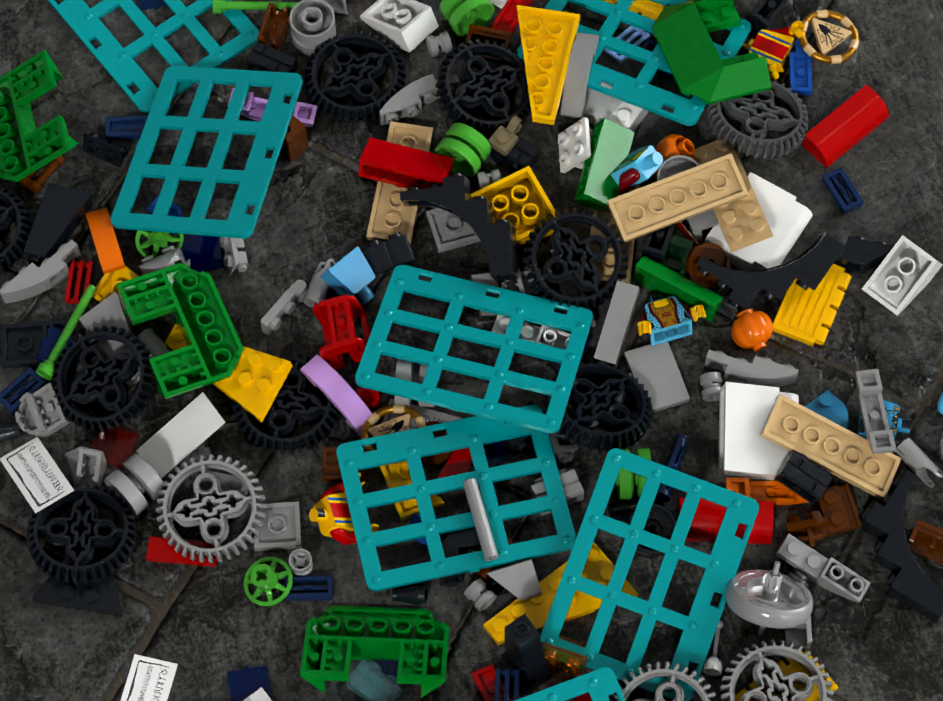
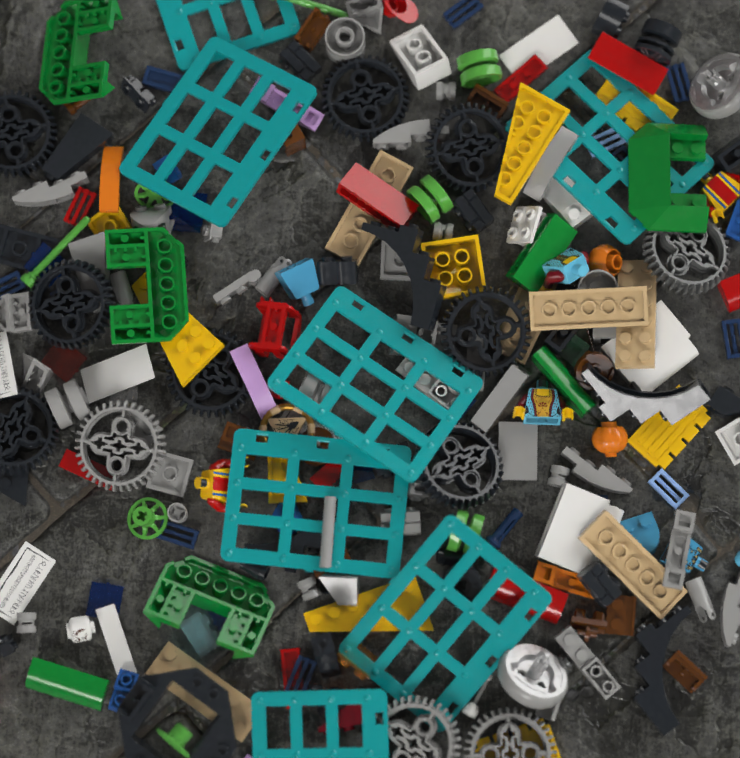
camera: 20 degrees right, 15 degrees up
(505, 138) = (468, 201): dark tan plate -> none
(832, 361) = (656, 477): none -> light blue tile

